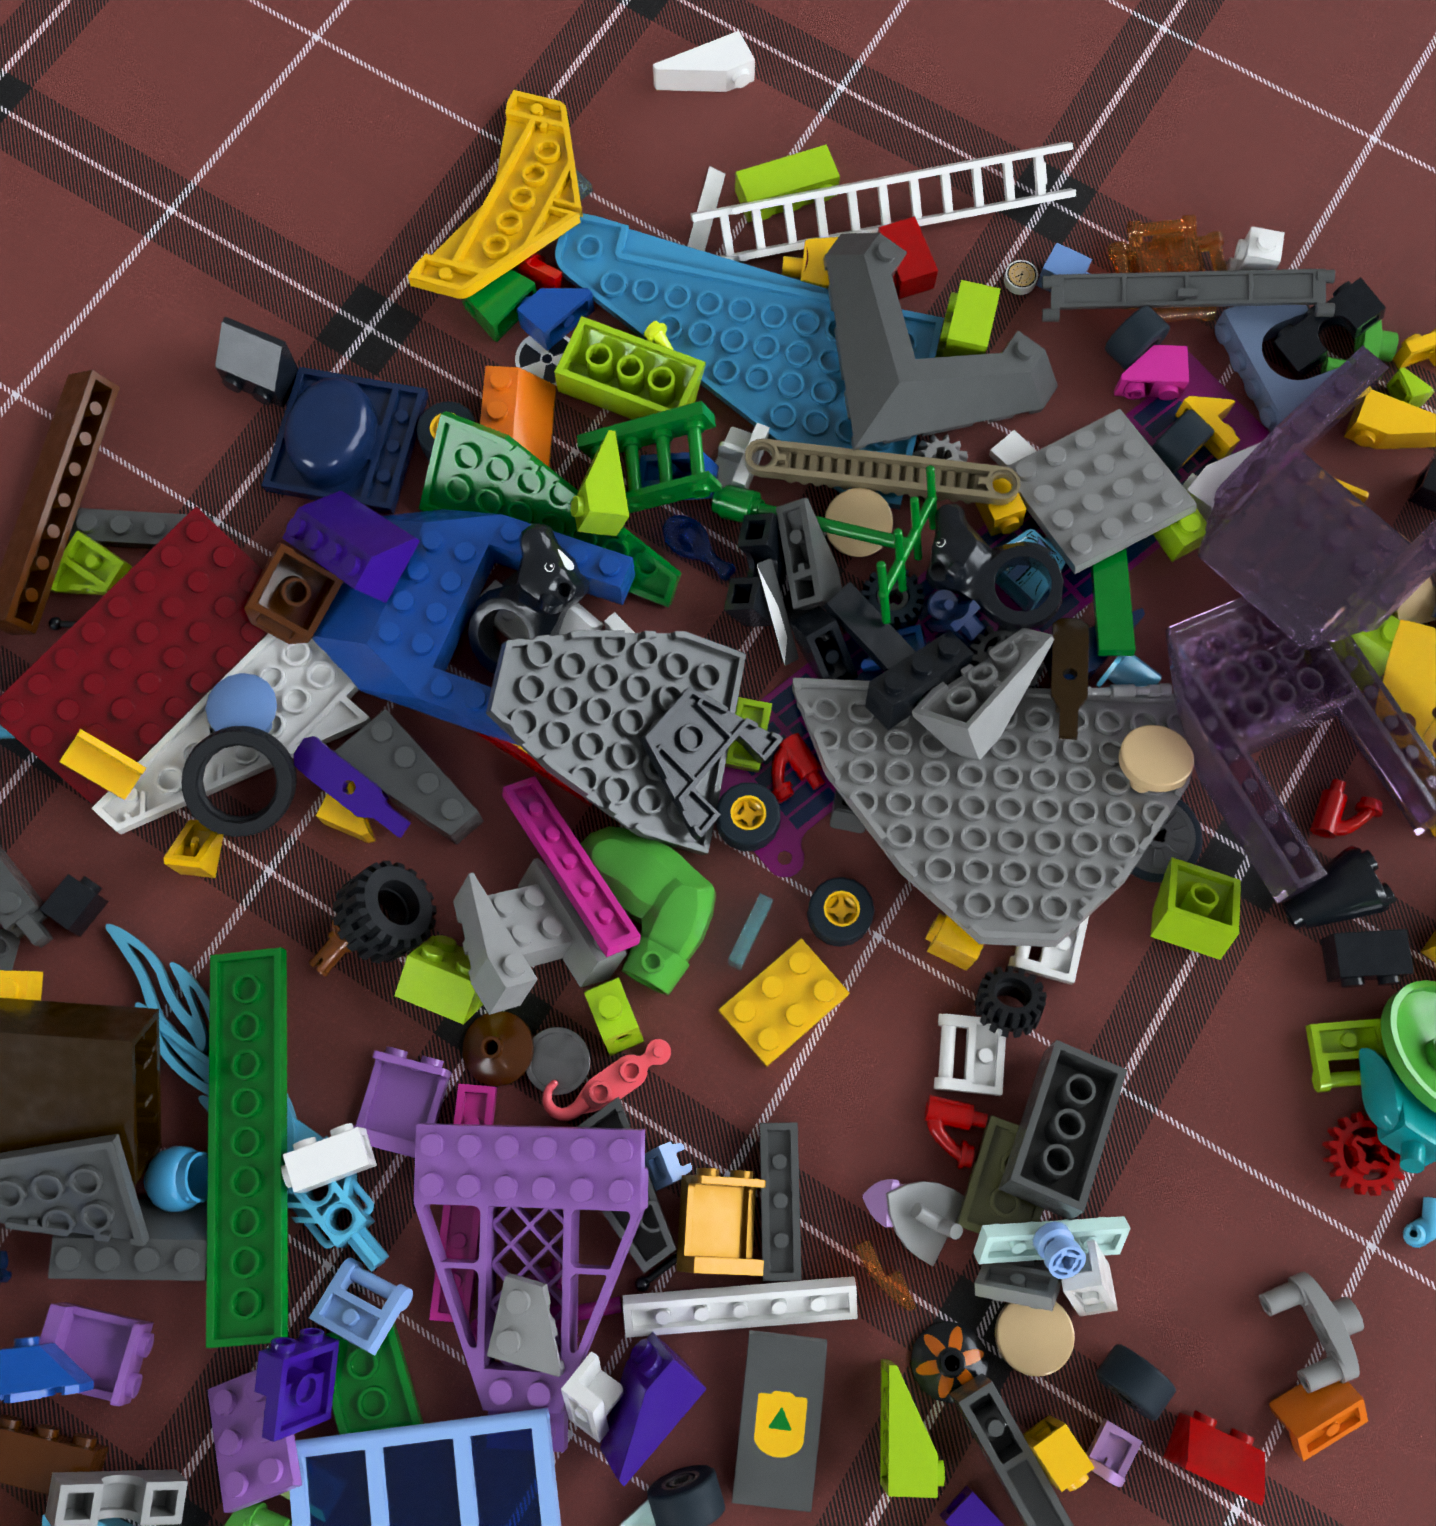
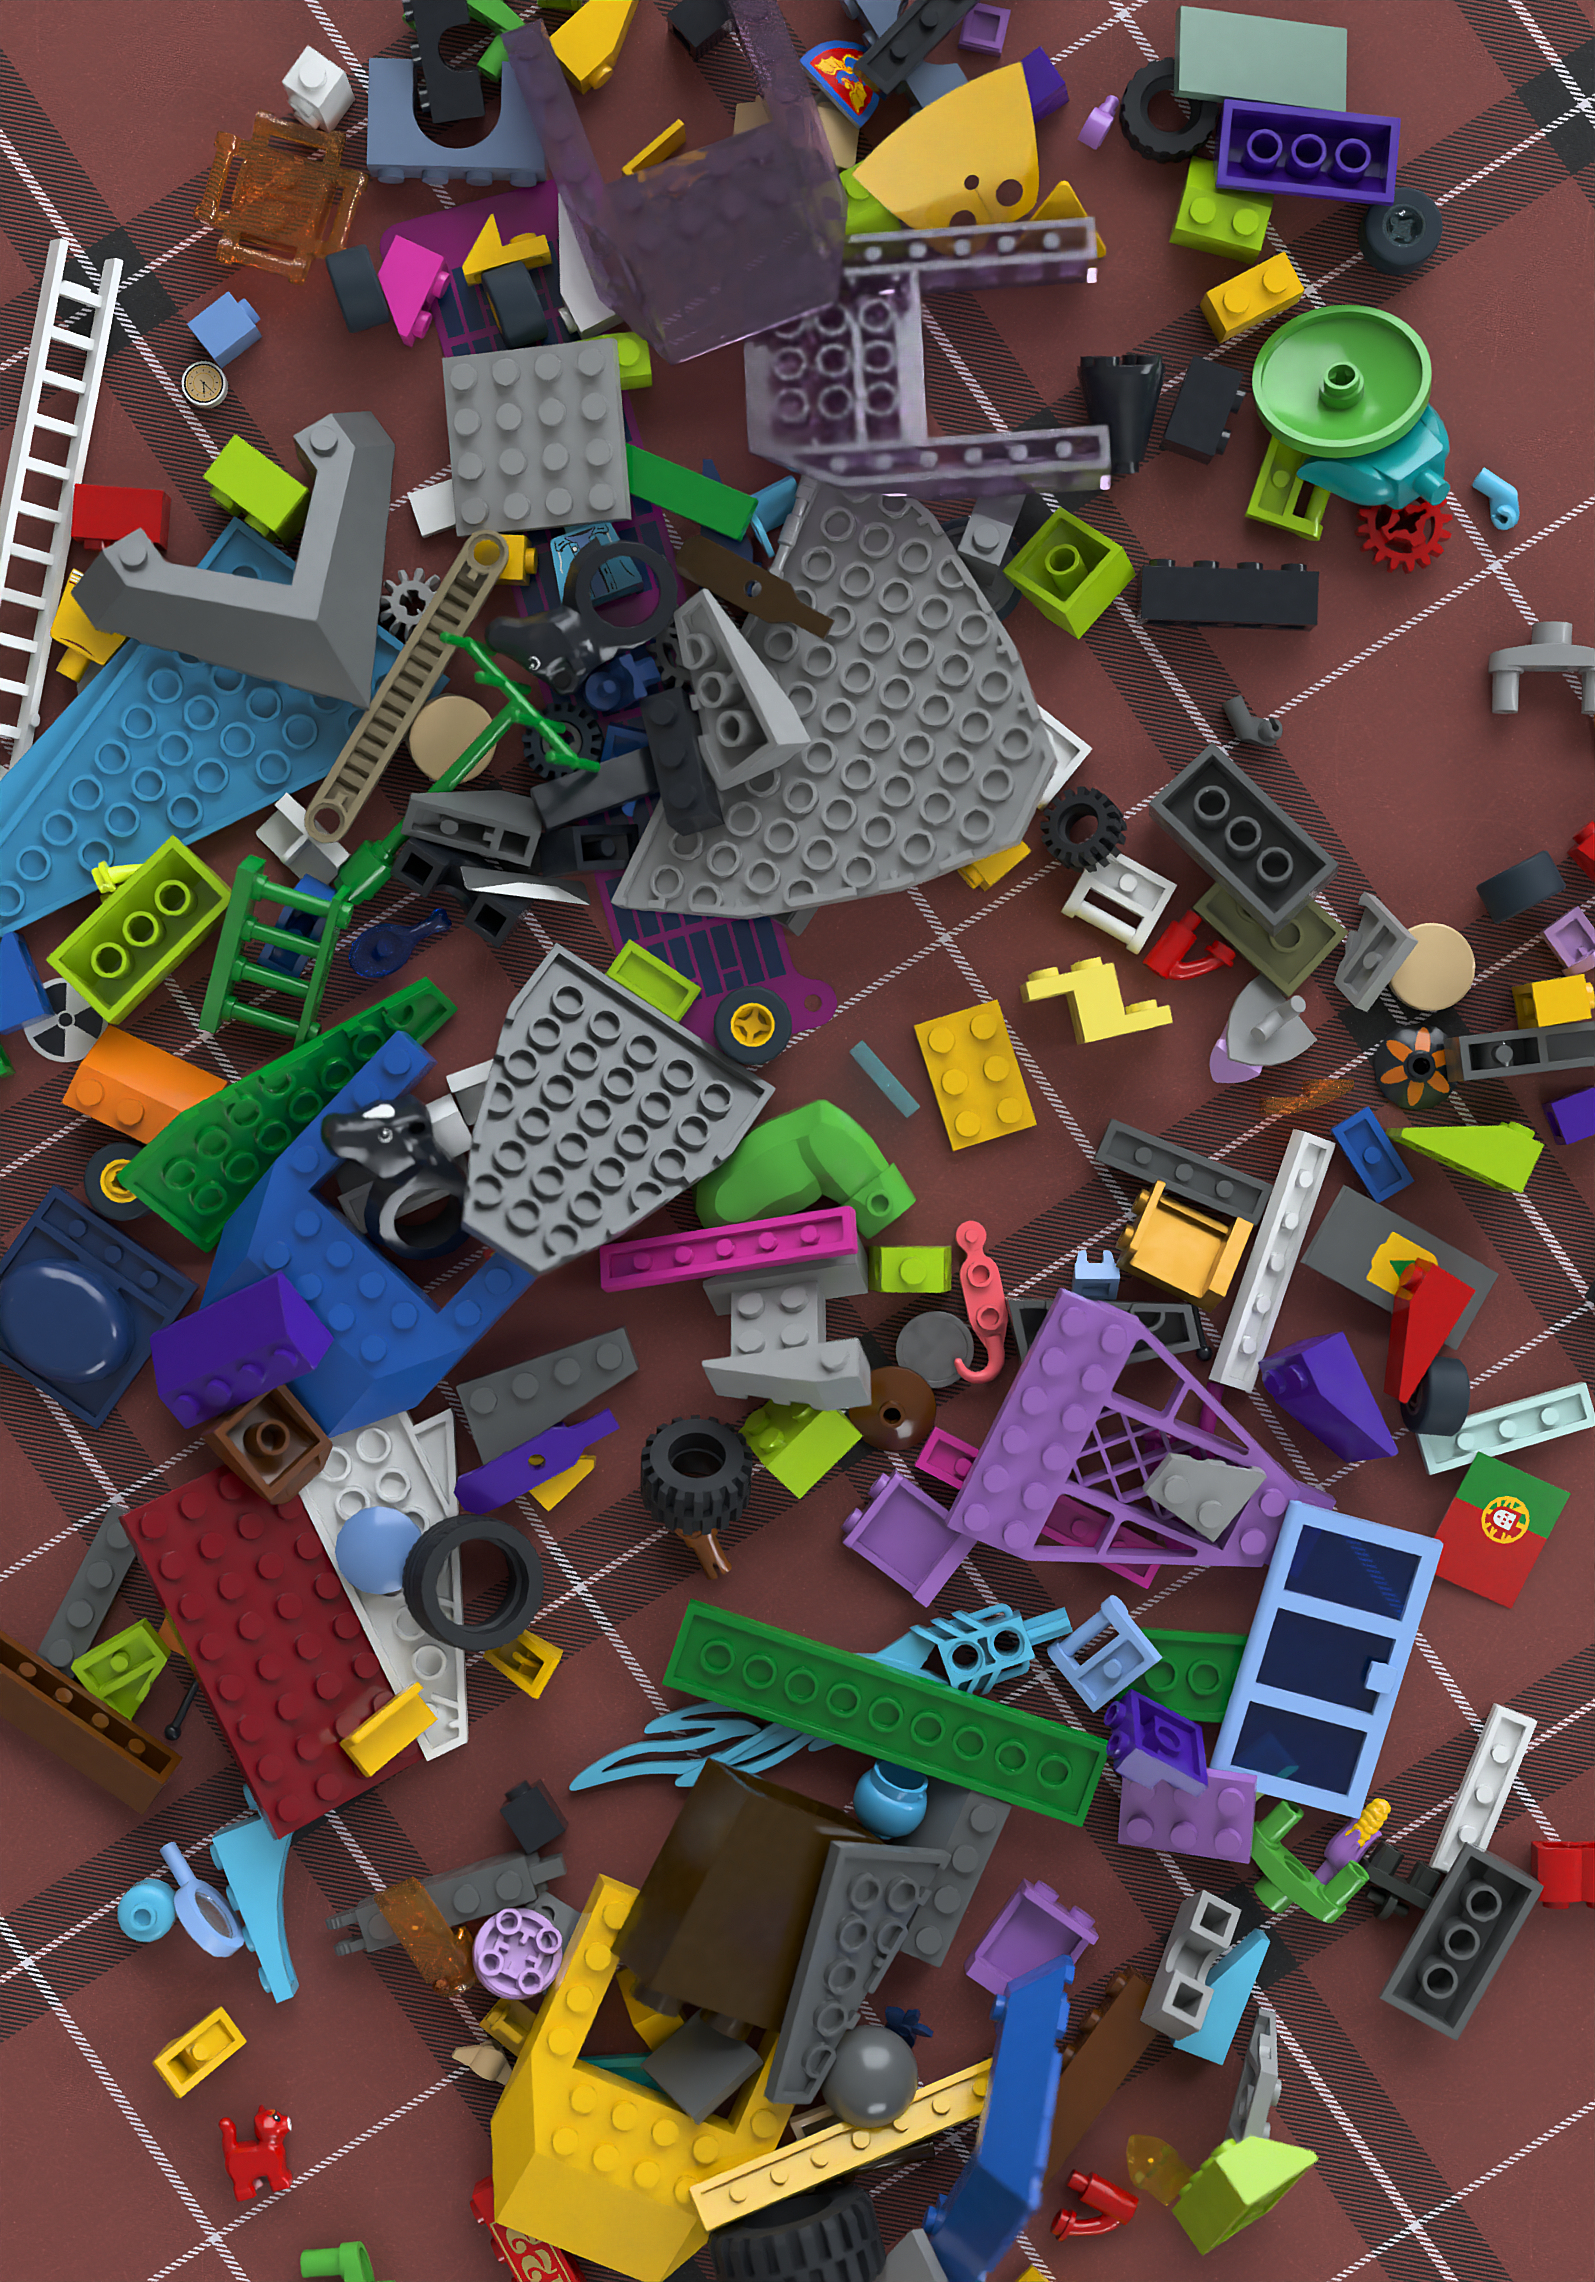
camera: 65 degrees left, 15 degrees up
(328, 1160) = (944, 1633): white brick -> none
(590, 1397) = (1298, 1451): white panel -> none
(602, 500) = (304, 1035): lime slope -> none
(688, 744) = (647, 1056): wing -> none
(747, 1458) = (1422, 1319): none -> red slope
(803, 762) = (711, 935): red plant -> none
(843, 899) = (917, 968): black wheel -> none
(861, 1354) = (1371, 1155): none -> blue plate
(882, 1066) = (1094, 1001): none -> light yellow bracket
(1015, 1240) = (1347, 906): light aqua plate -> none
(1059, 1250) = (1364, 907): light blue wheel -> none
(1092, 1288) = (1405, 886): white panel -> none
(1148, 1101) = (1251, 728): none -> dark grey arm
(1155, 759) = (891, 540): tan tile -> none
(1189, 290) = (327, 199): dark grey piece -> none
(1196, 833) = (989, 535): none -> dark grey slope
(1240, 1038) = (1227, 596): none -> black brick
(1328, 815) = (1022, 359): red plant -> none

